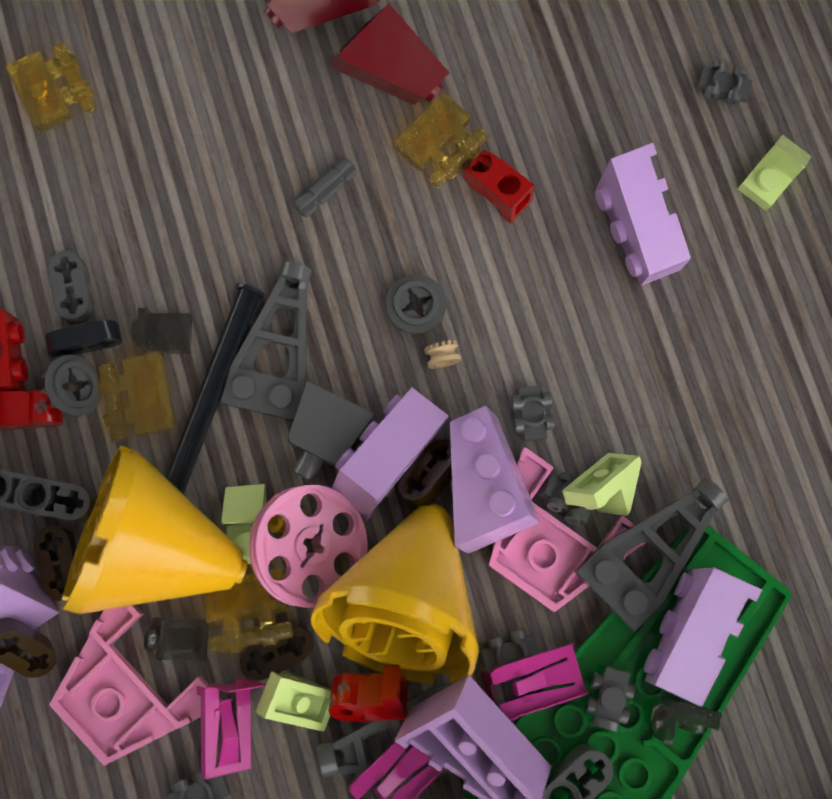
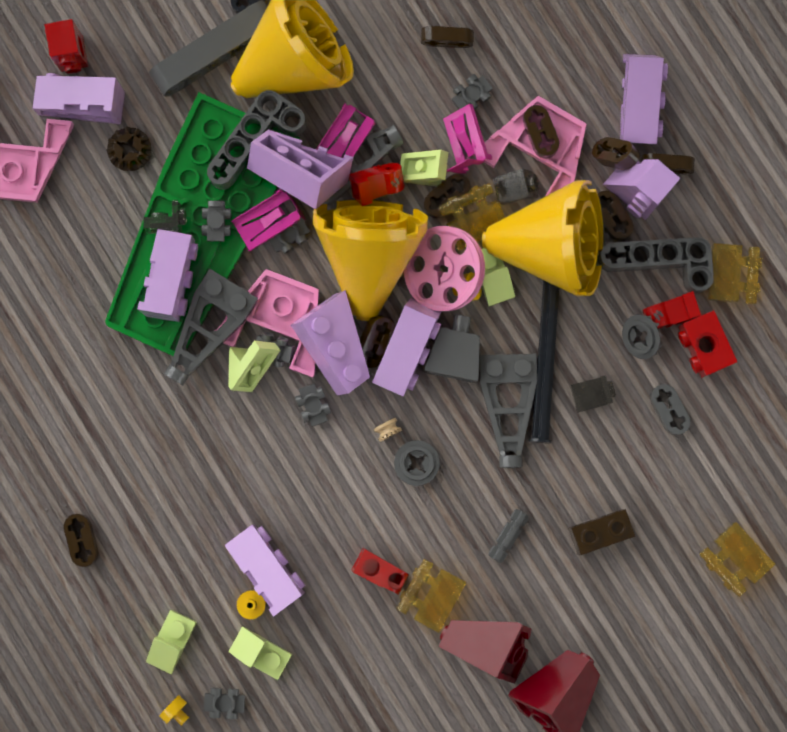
camera: 175 degrees right, 5 degrees up
(83, 338) = (647, 373): black beam -> none
(105, 710) = (535, 134): none -> dark brown beam
(148, 396) = (588, 346): clear yellow plate -> none
(206, 157) = (601, 532): none -> dark brown brick
(672, 132) = (260, 653): none -> yellowish green slope
(676, 187) = (258, 602): none -> yellow tile
(788, 87) = (174, 711): none -> yellow tile

